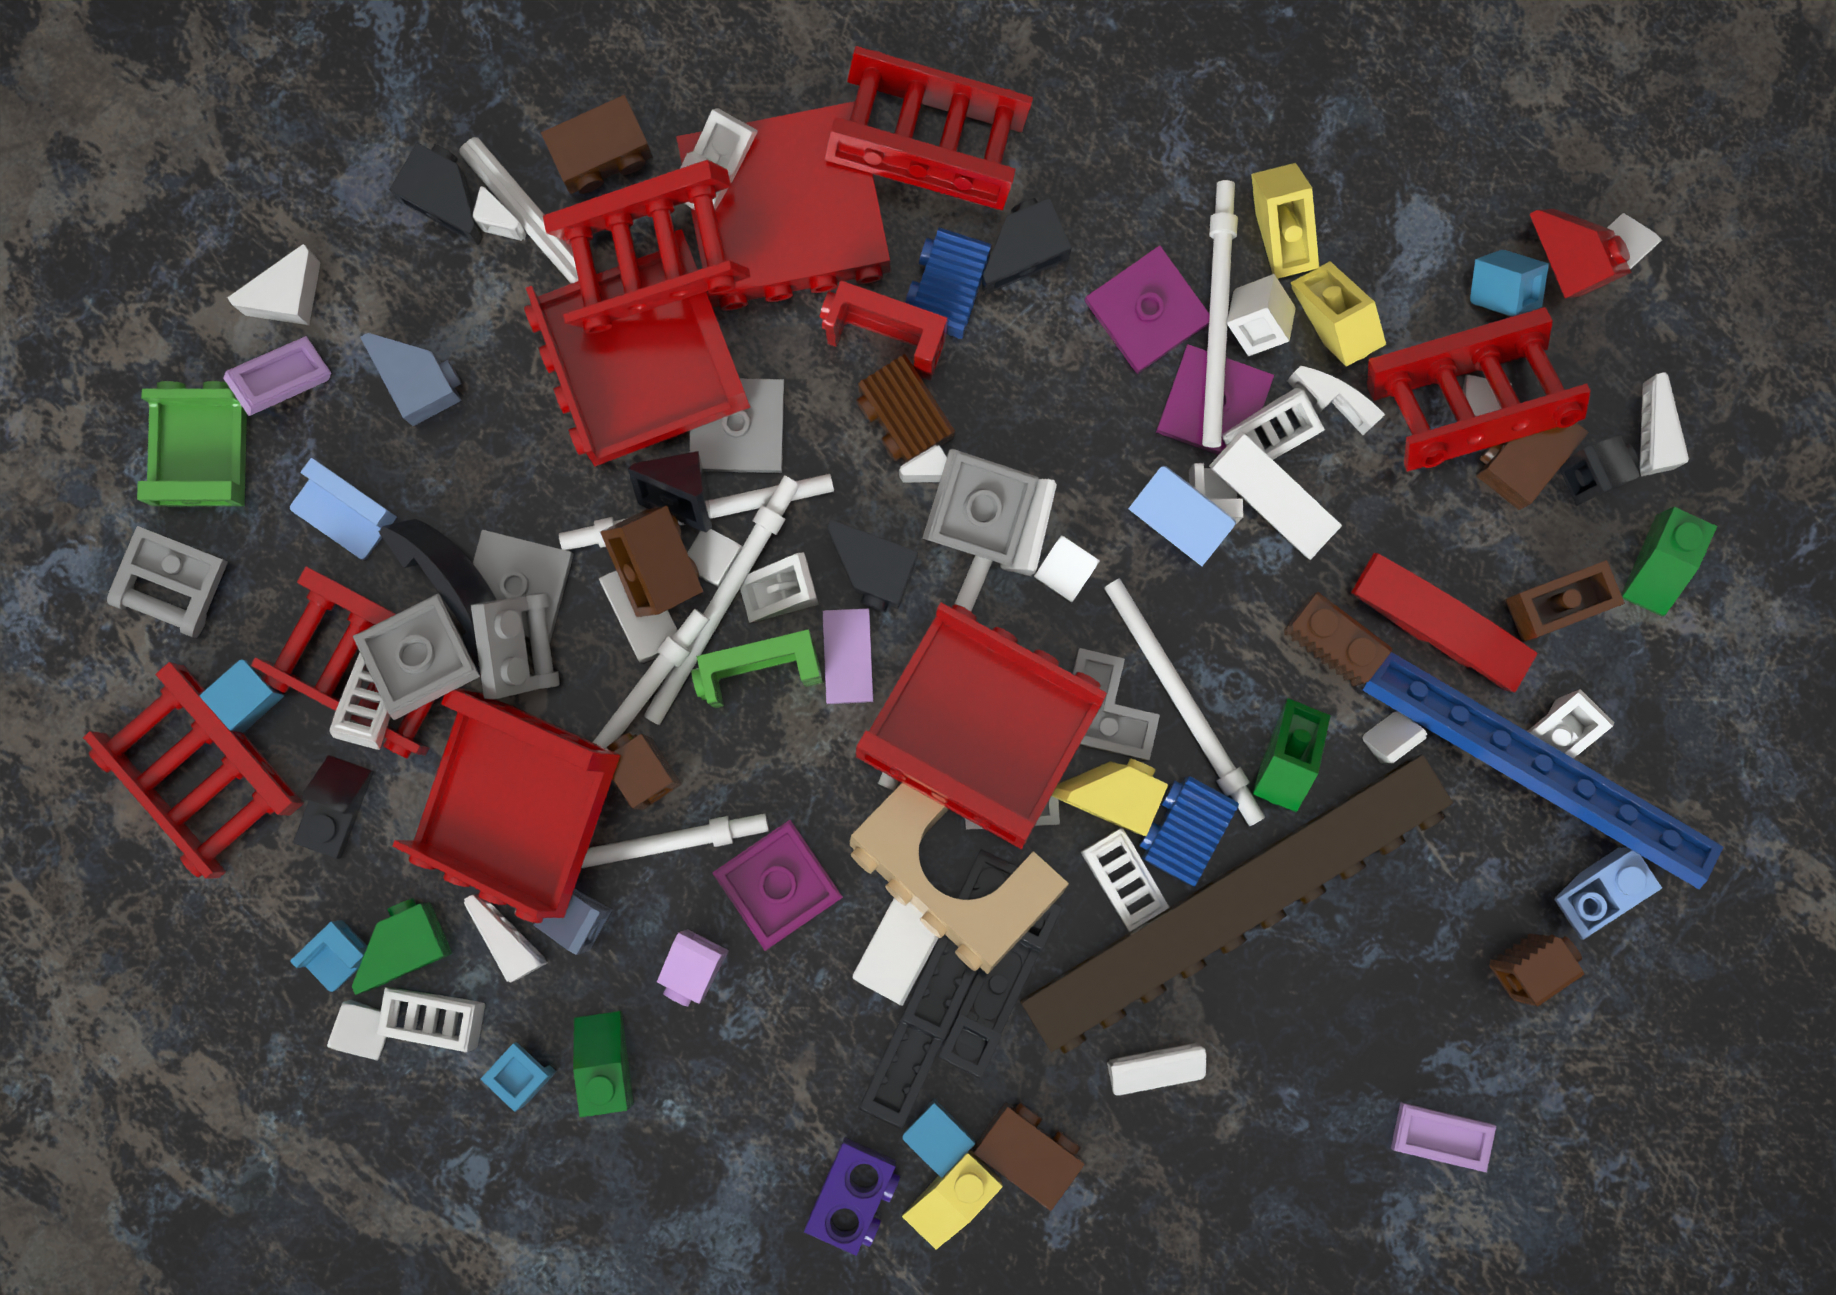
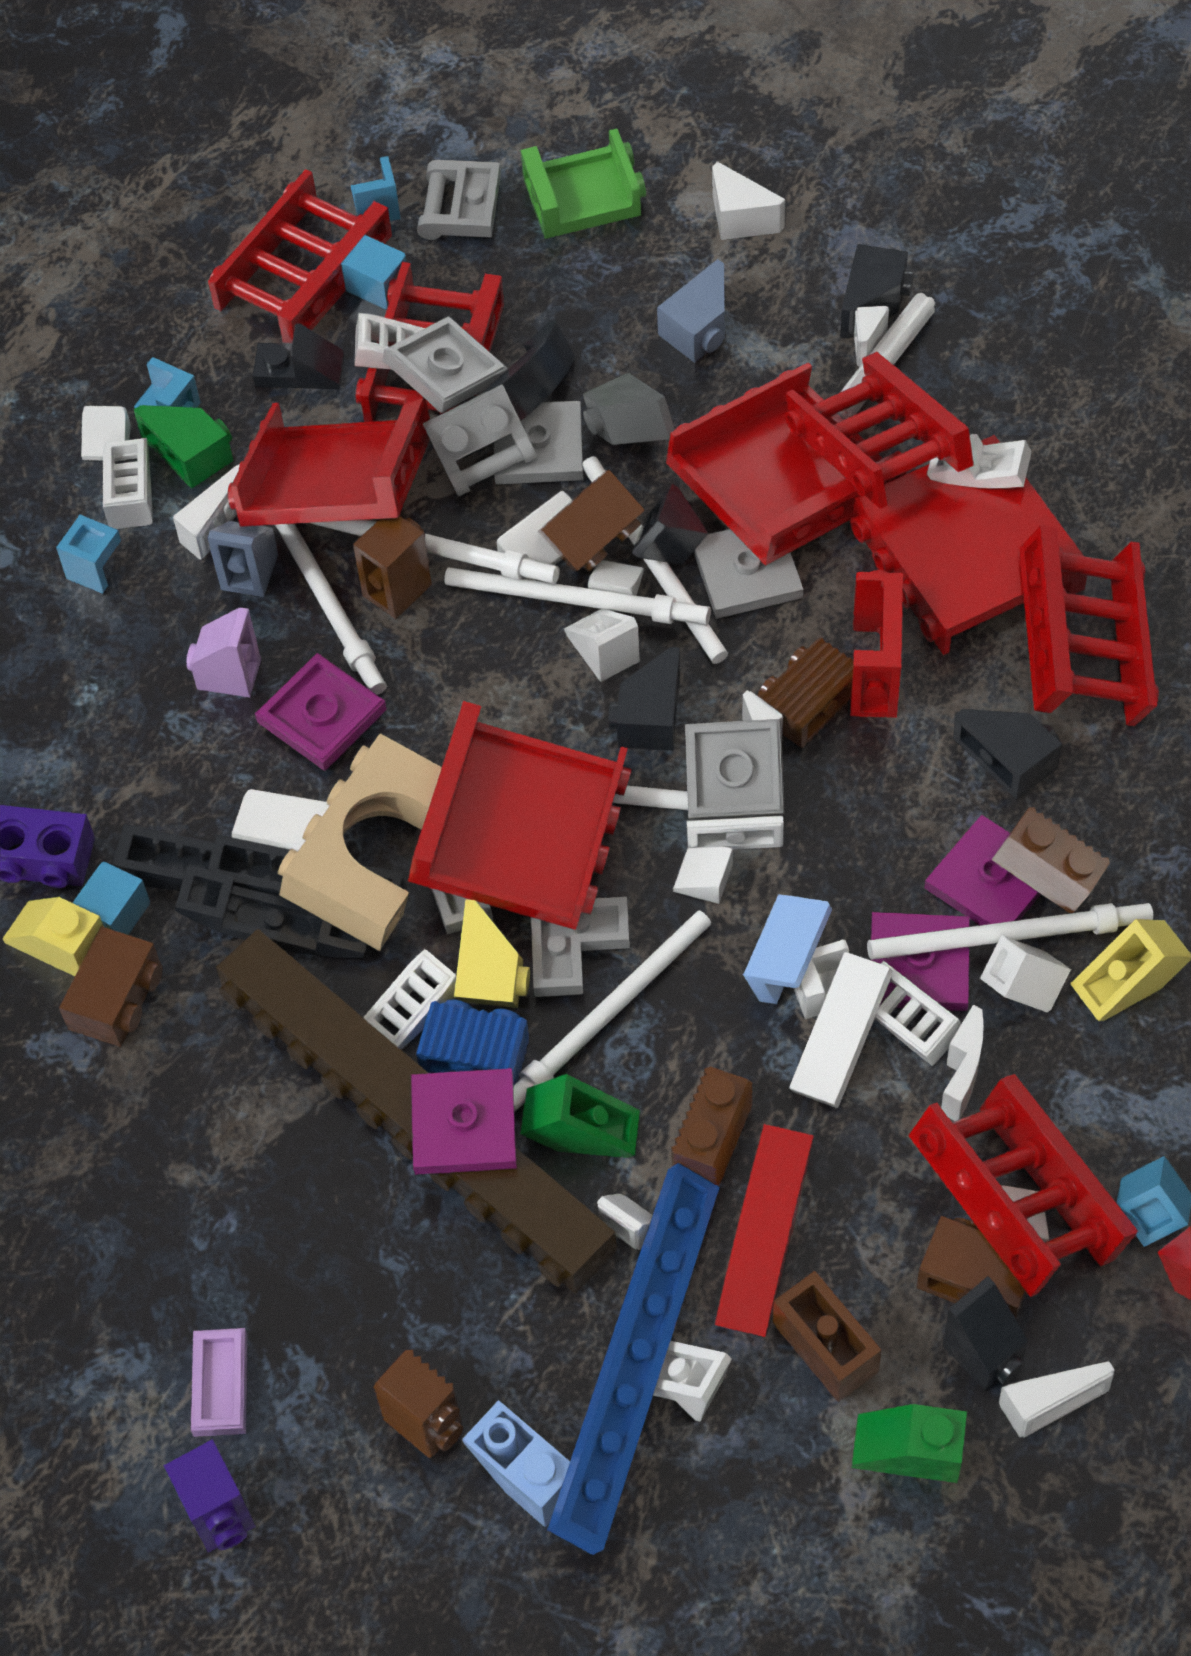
camera: 80 degrees right, 25 degrees down
(133, 669) = (380, 191): none -> dark azure panel
(277, 375) = (664, 219): lavender tile -> none
(340, 510) = (566, 297): light blue panel -> none
(524, 486) = (627, 412): none -> dark grey slope
(597, 146) = (966, 386): reddish brown brick -> none
(601, 1064) = (114, 616): green slope -> none
(753, 657) = (505, 597): bright green panel -> none
(847, 656) = (559, 712): lavender tile -> none
(950, 278) = (938, 690): blue brick -> none
(1157, 1068) = (224, 1083): white slope -> none
(1170, 252) = (1051, 860): none -> reddish brown brick
(1284, 860) = (463, 1121): none -> magenta plate
(1340, 313) = (1053, 1044): light yellow slope -> none
(1572, 1170) = (210, 1497): none -> dark purple brick

